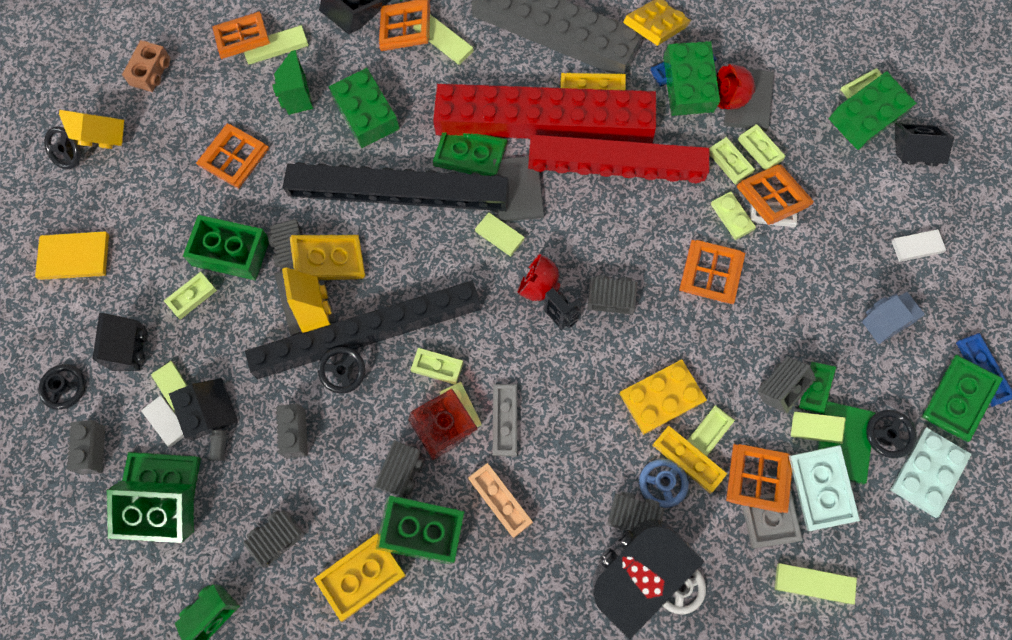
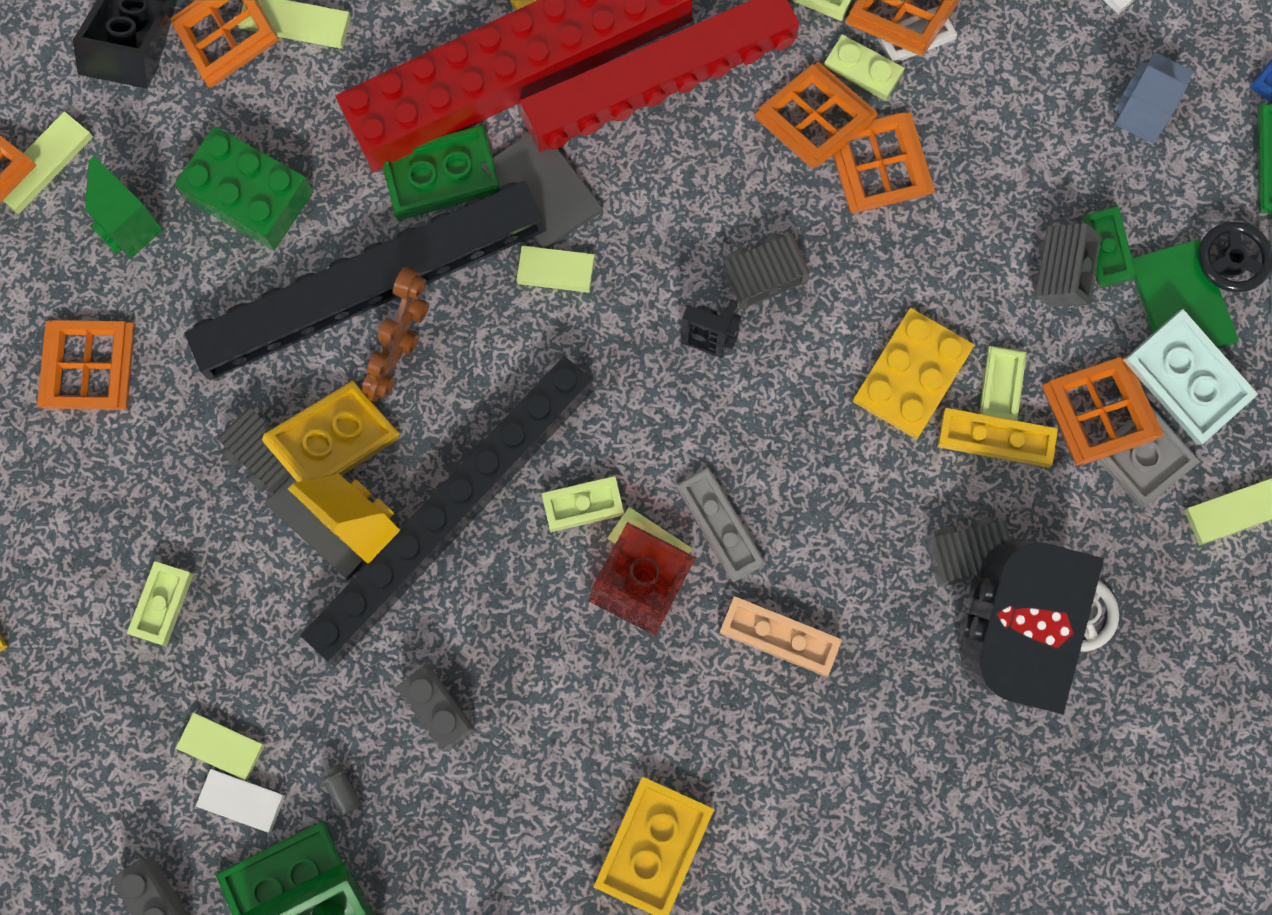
camera: 30 degrees left, 5 degrees up
(53, 379) = (37, 837): black piece -> none
(119, 343) = (106, 728): black slope -> none
(203, 408) = (288, 749): black slope -> none
(226, 247) = (172, 504): green brick -> none
(273, 538) = (502, 867): dark grey brick -> none
(347, 363) = (425, 594): black piece -> none
(387, 220) = (396, 335): none -> dark orange plant
(399, 470) = (619, 674): dark grey brick -> none
(420, 530) = (700, 737): green brick -> none
(540, 279) = (655, 299): red cylinder -> none
(670, 476) = (990, 478): medium blue piece -> none
(709, 221) = (792, 136): none -> orange piece
(818, 427) = (1139, 300): yellowish green tile -> none

